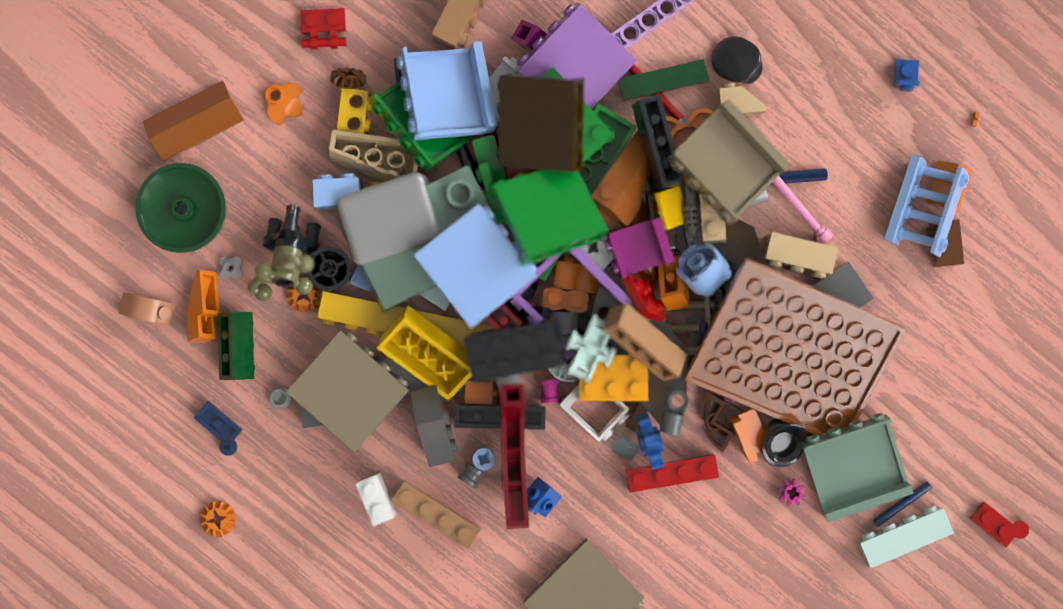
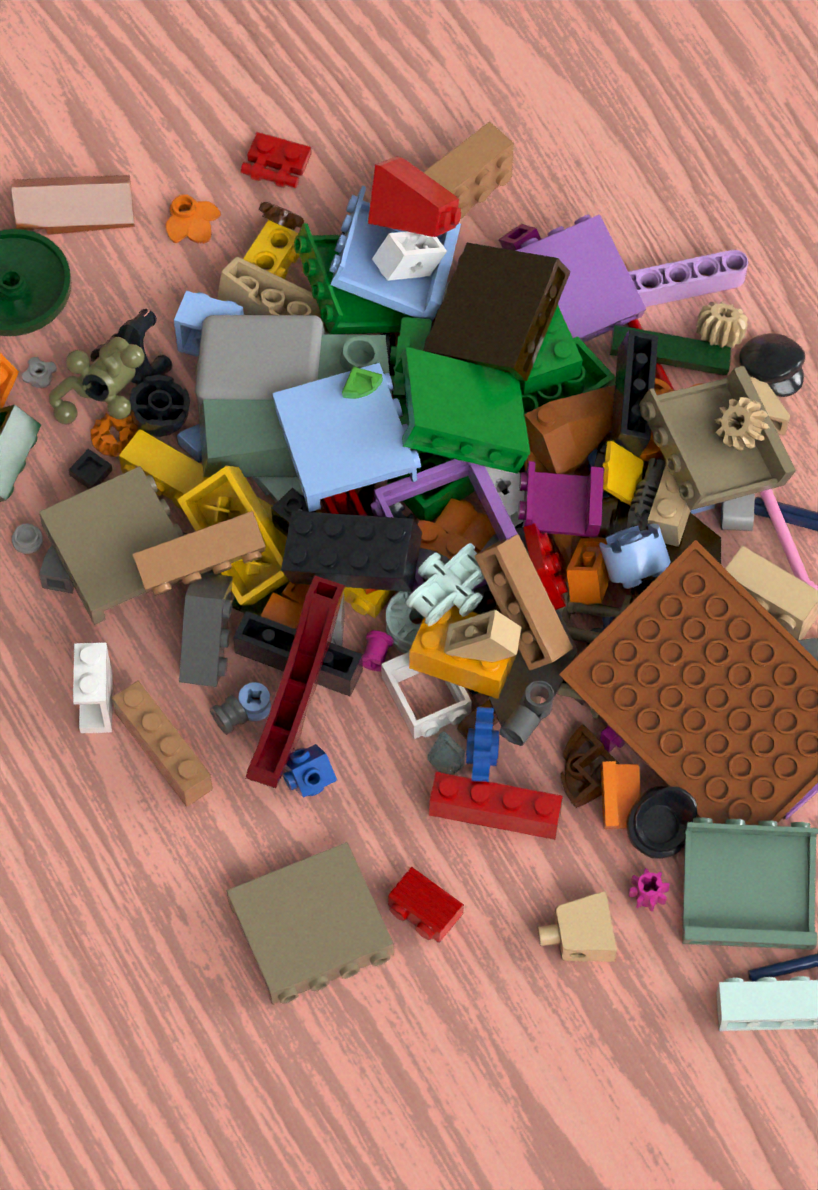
camera: 20 degrees right, 25 degrees down
(300, 330) = (90, 469): none -> black plate
(412, 388) = (199, 552): none -> medium nougat brick
(447, 53) = (411, 200): none -> red slope
(457, 324) = (283, 508): none -> black brick
(460, 94) = (408, 255): none -> white brick
(473, 227) = (361, 383): none -> bright green tile
(627, 380) = (483, 637): none -> tan slope
(652, 559) = (424, 905): none -> red brick
(692, 47) = (721, 324): none -> tan gear
(742, 139) = (751, 427): none -> tan gear
(758, 536) = (582, 930): none -> tan torso

